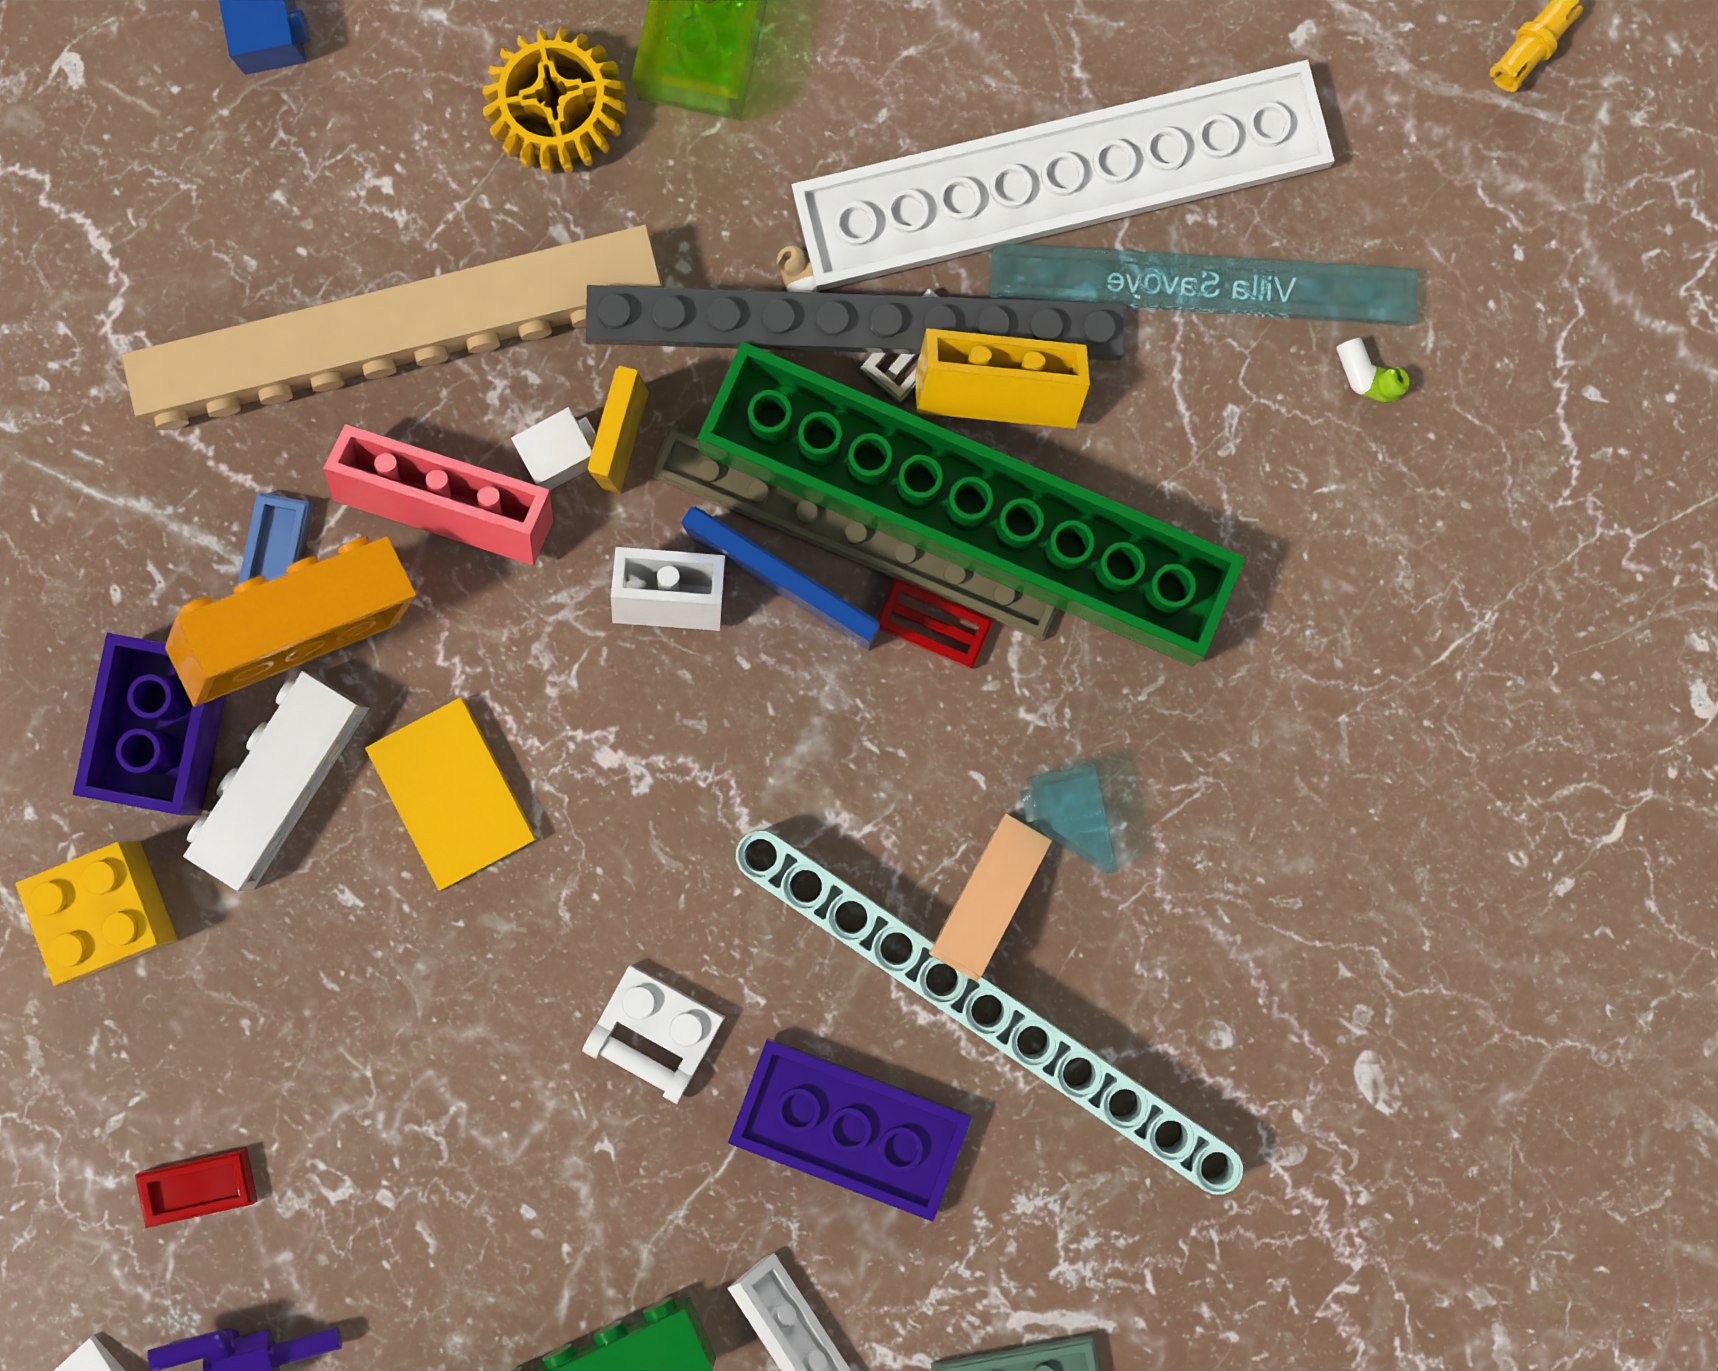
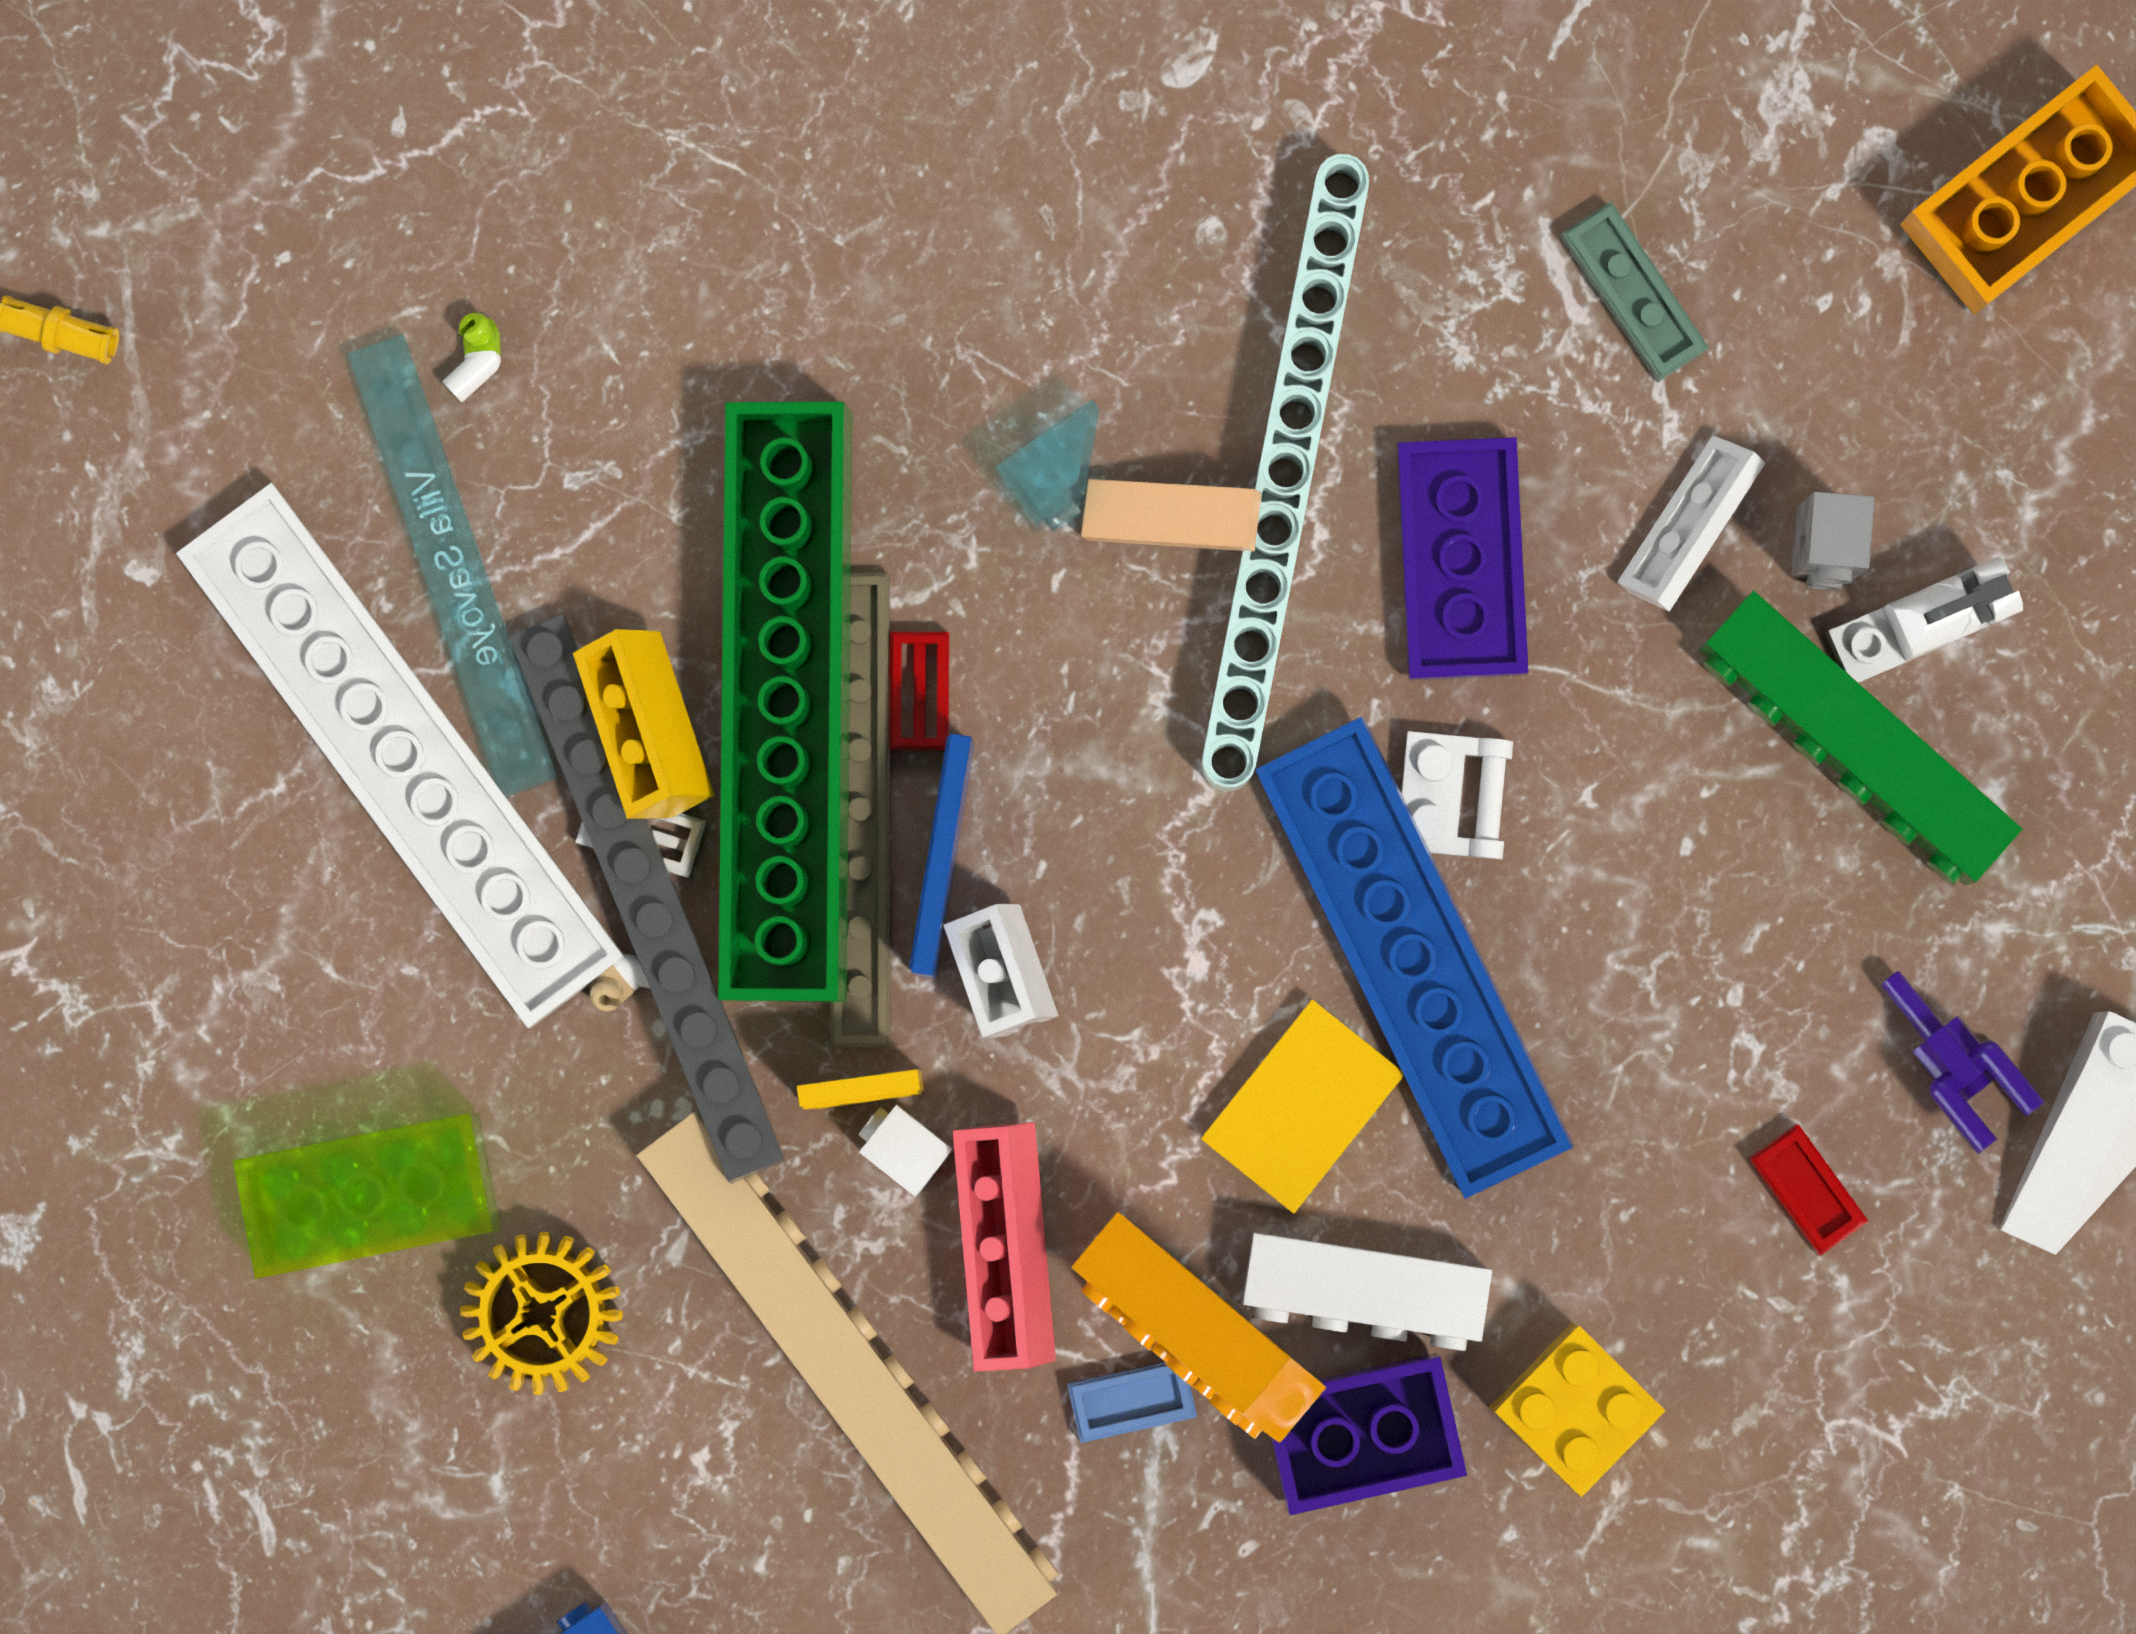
camera: 115 degrees left, 0 degrees up
(530, 940) = (1414, 957): none -> blue plate

